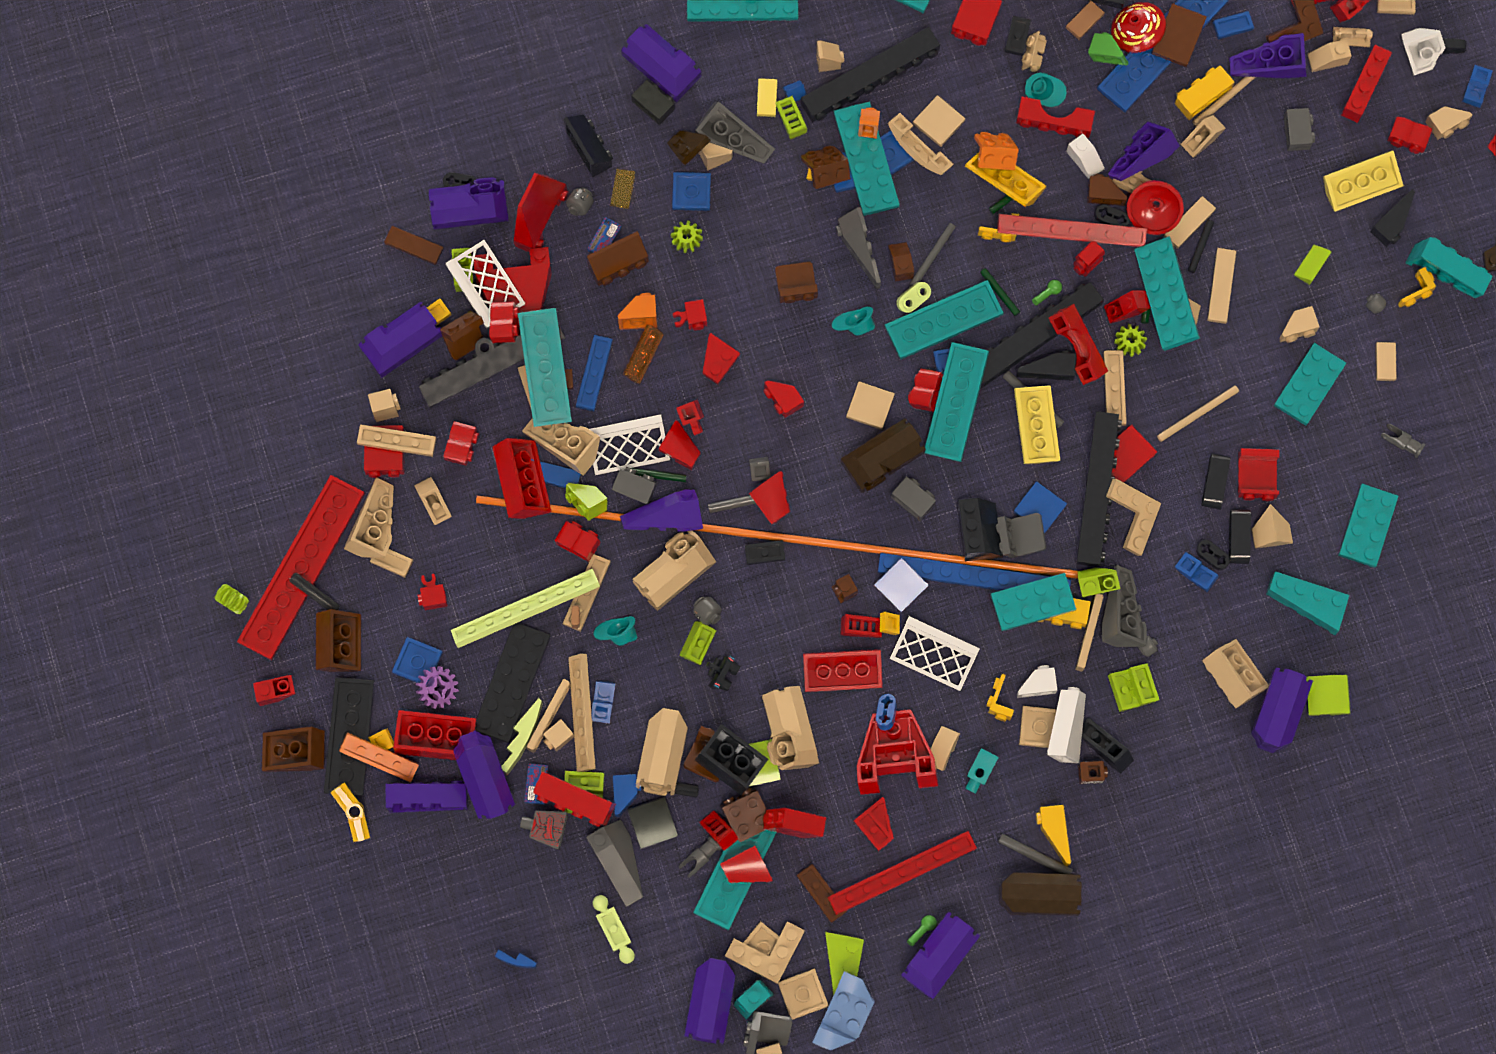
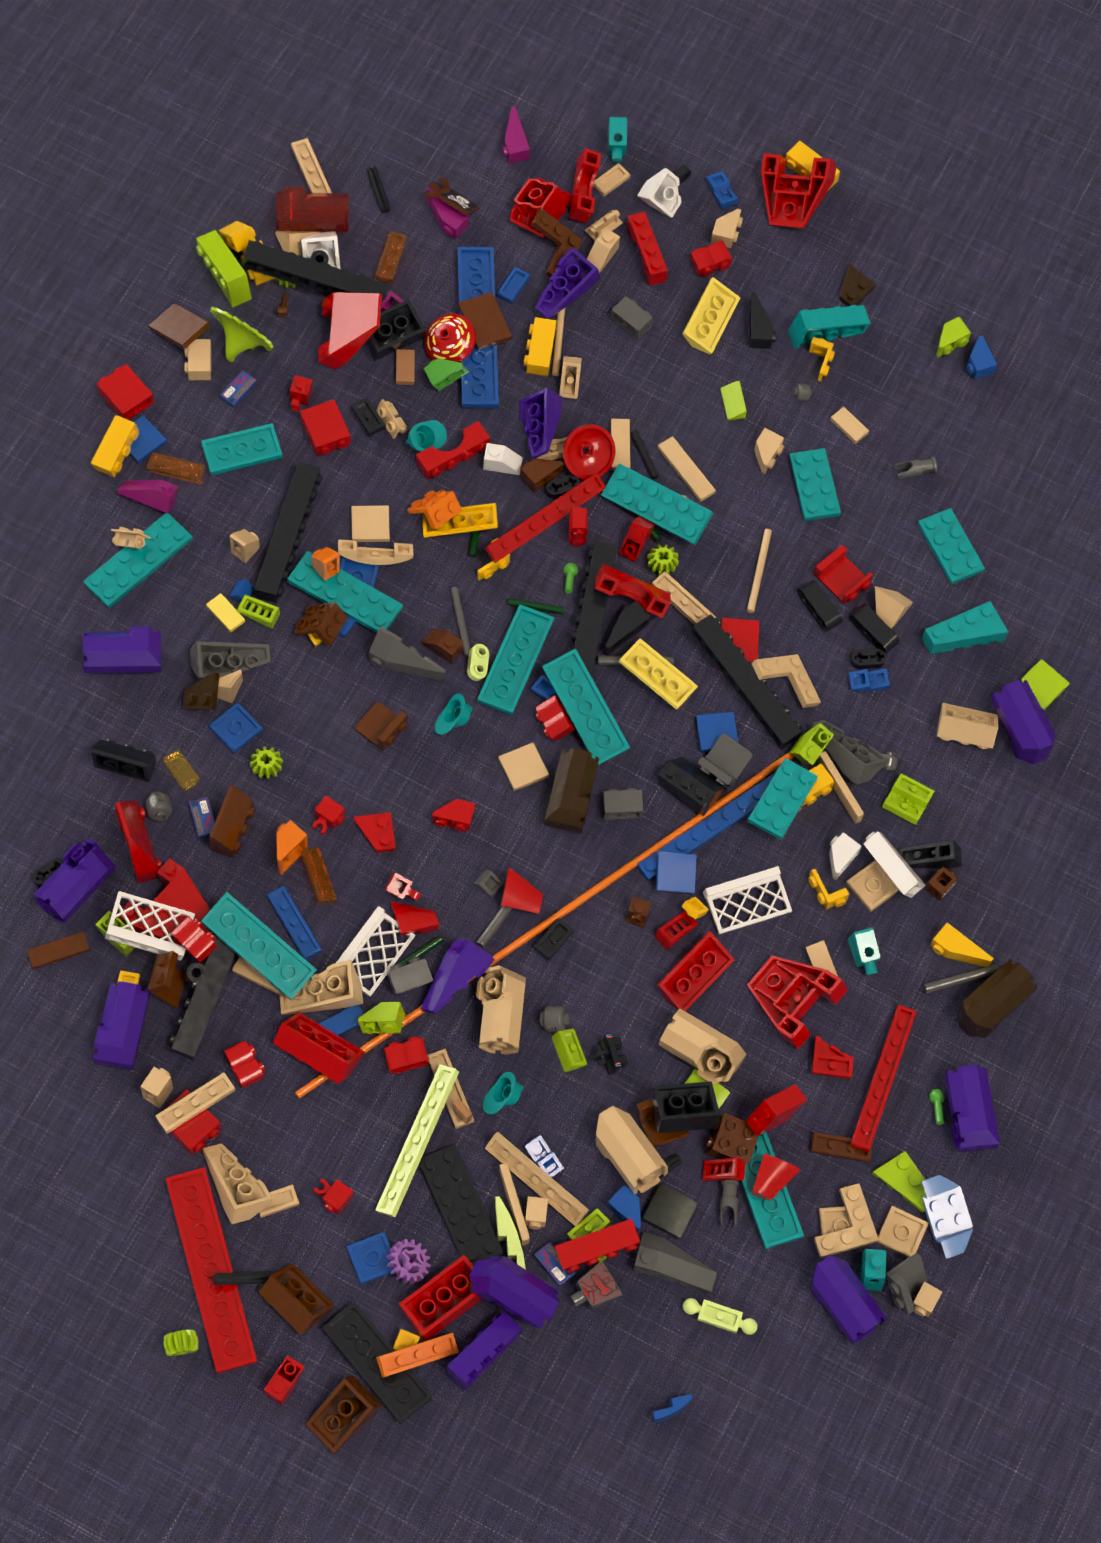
camera: 50 degrees left, 10 degrees down
(357, 823) = (426, 1410): yellow piece -> none
(432, 500) = (265, 1125): tan slope -> none
(653, 102) = (143, 687): pearl dark grey brick -> none
(882, 711) = (753, 975): blue beam -> none

